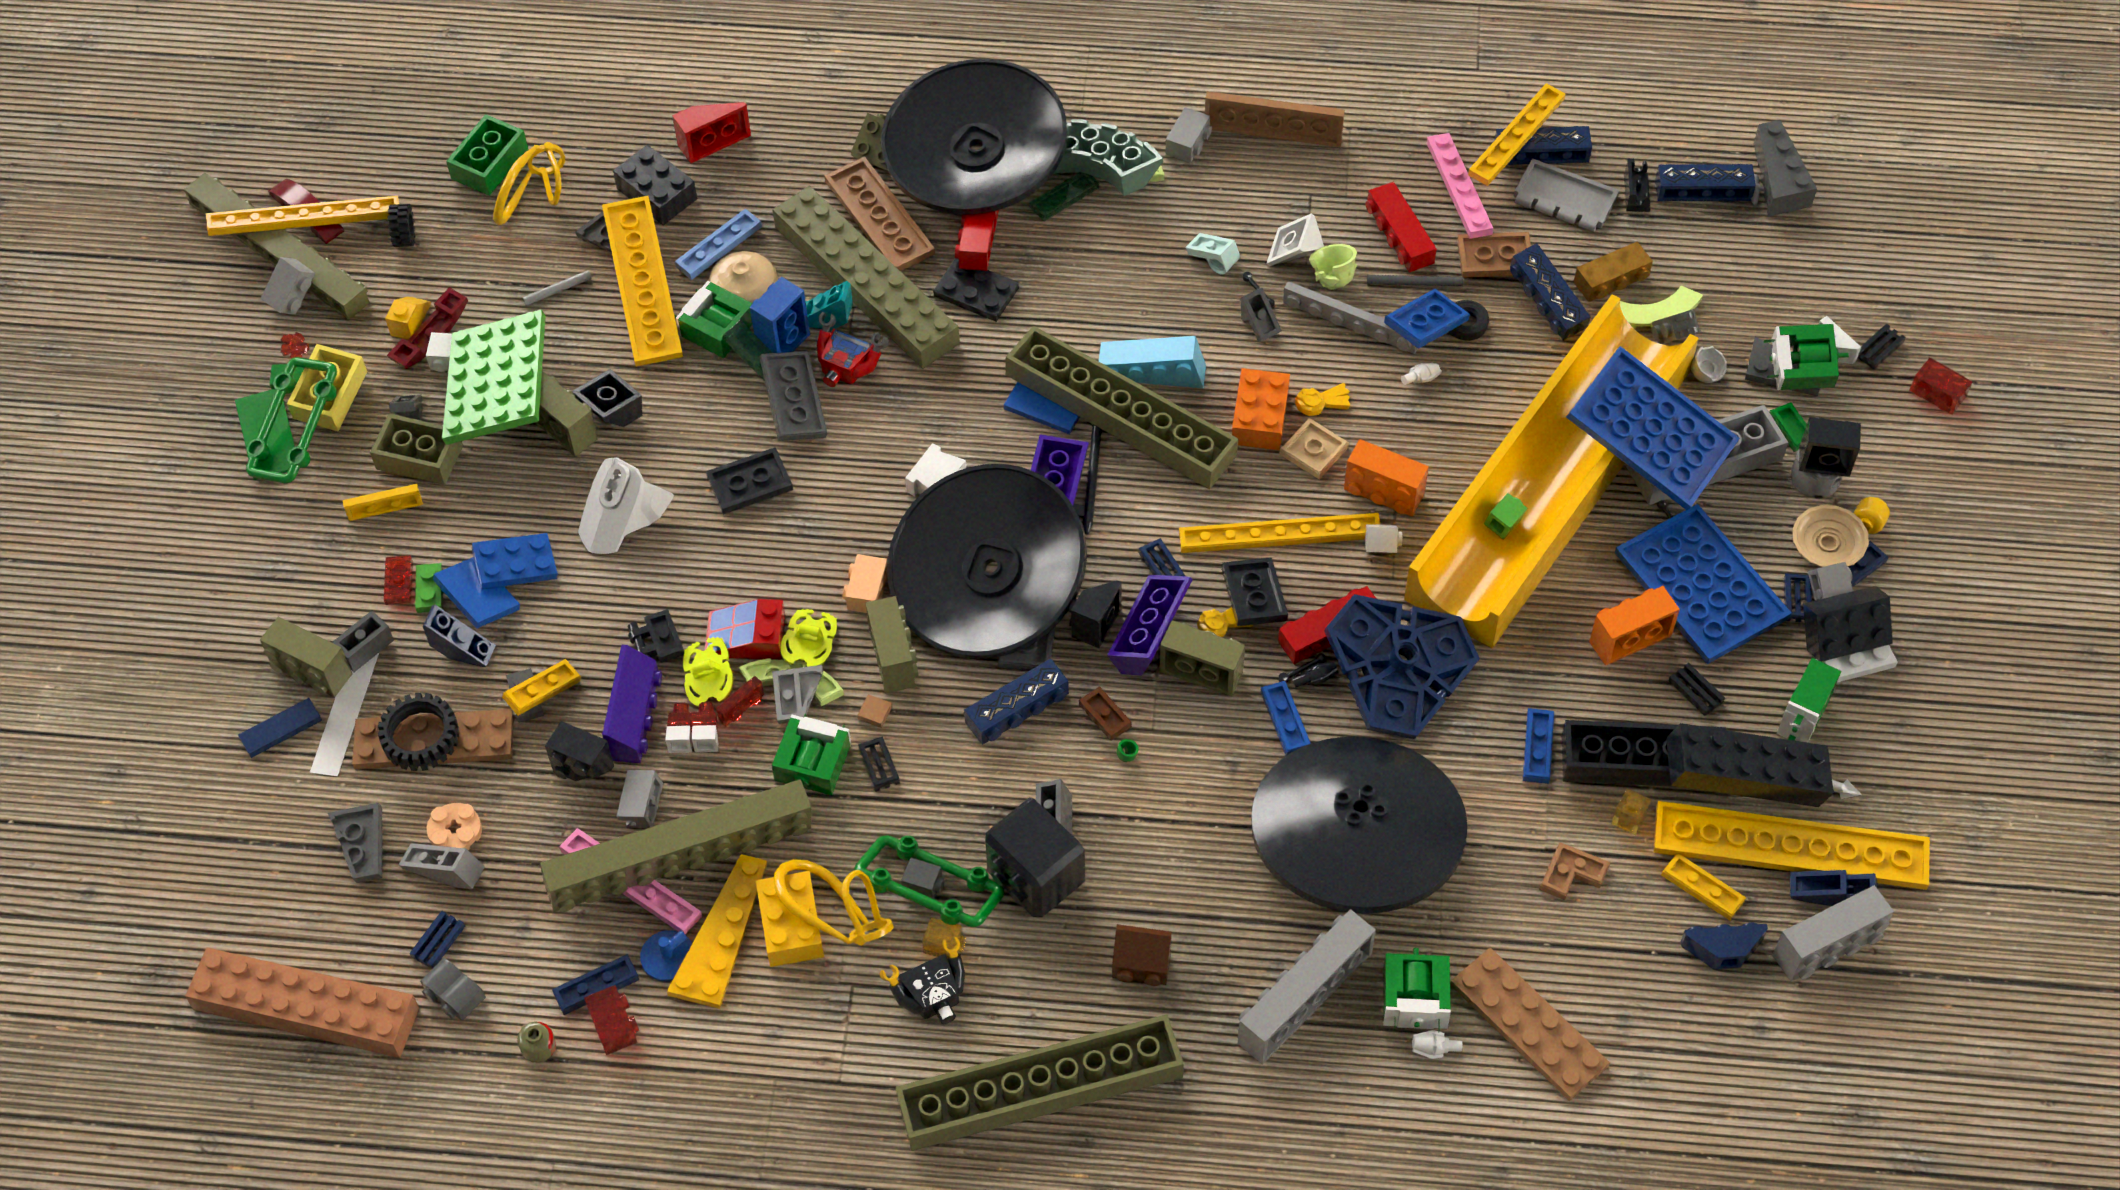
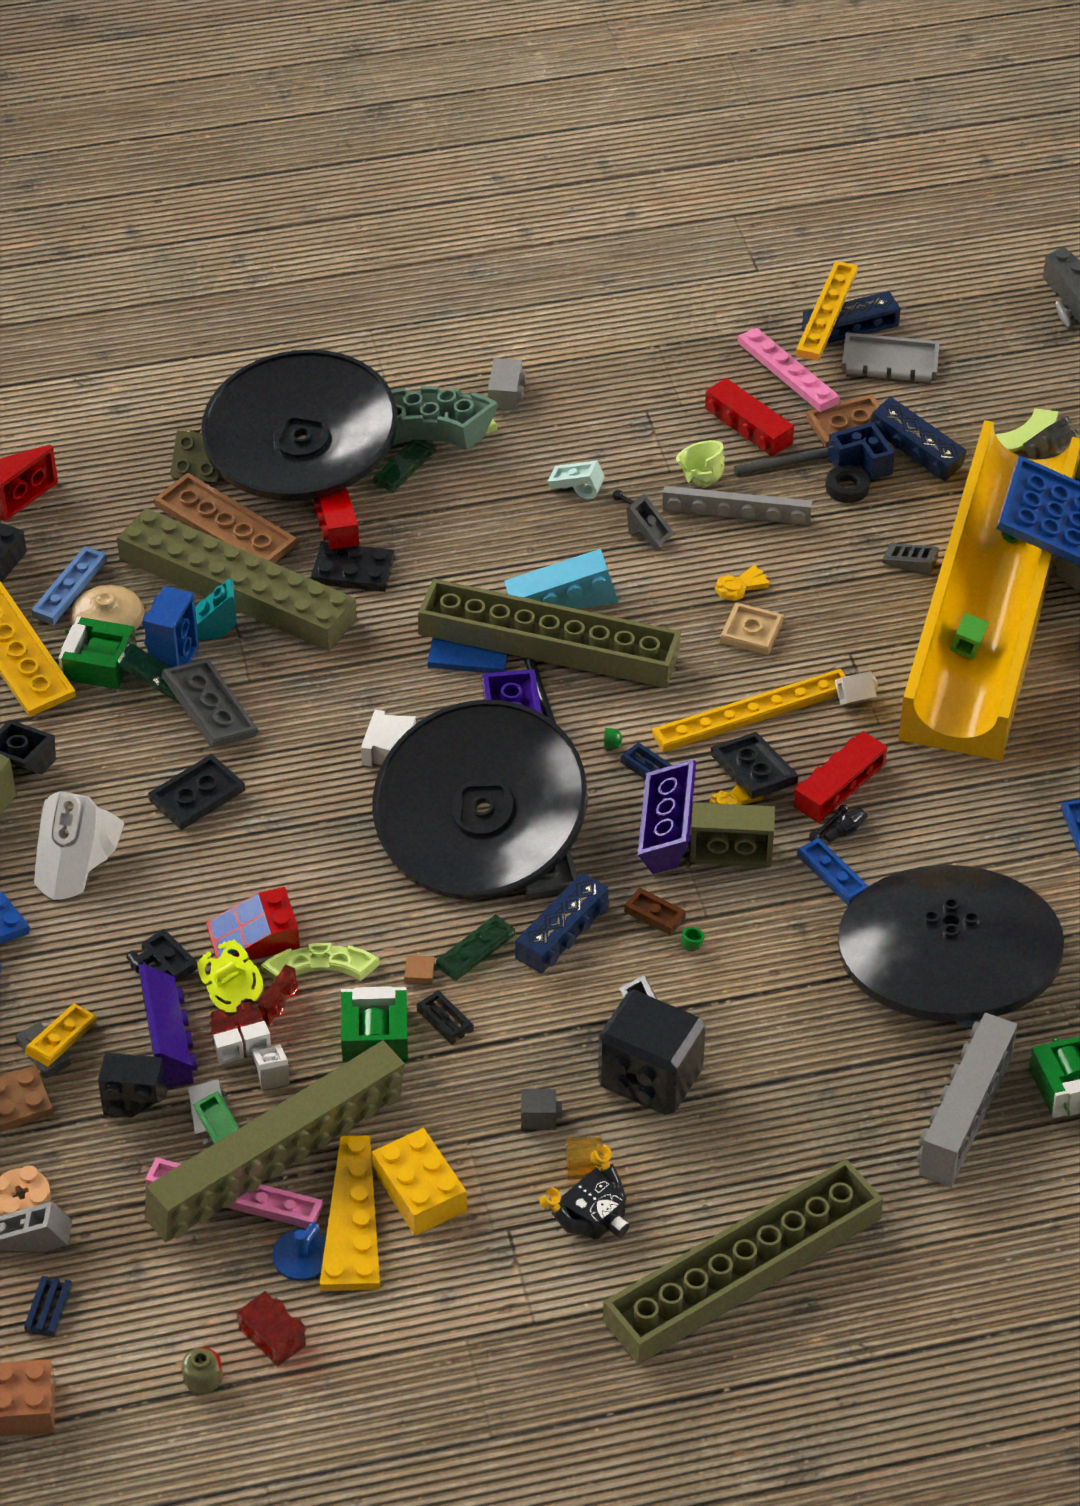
camera: 20 degrees left, 10 degrees down
(452, 989) = (87, 1347): dark grey brick -> none
(572, 993) = (222, 1313): dark blue tile -> none
(637, 808) = (215, 1116): none -> green tile
(707, 768) = (271, 1066): none -> white slope
(795, 691) = (330, 970): light grey wing -> none
(808, 638) = (323, 920): neon yellow shield -> none
(844, 355) = (248, 654): torso -> none
(858, 934) = (498, 1175): yellow animal -> none
(866, 582) = (361, 855): light nougat brick -> none
(892, 644) = (414, 900): olive brick -> none
(933, 703) = (475, 947): none -> clear green tile
(951, 911) = (584, 1127): green bar -> none
(1095, 612) = (606, 821): black slope -> none
(1137, 528) = (612, 738): none -> green hinge
(1141, 955) = (793, 1114): reddish brown slope -> none
(1260, 408) = (687, 602): orange brick -> none
(1275, 119) = (587, 349): medium nougat plate -> none
(1295, 240) = (653, 450): white slope -> none
(1385, 477) = (837, 633): orange brick -> none
(1396, 691) = (932, 793): dark blue plate -> none
(1421, 373) = (826, 538): white piece -> none
(1426, 318) = (812, 487): blue tile -> none
(1492, 286) = (862, 447): none -> dark blue brick
(1497, 423) = (919, 557): none -> dark grey slope
(1613, 271) = (967, 409): pearl gold brick -> none
(1636, 187) = (954, 336): black hinge -> none
(1705, 182) = (1016, 317): dark blue brick -> none

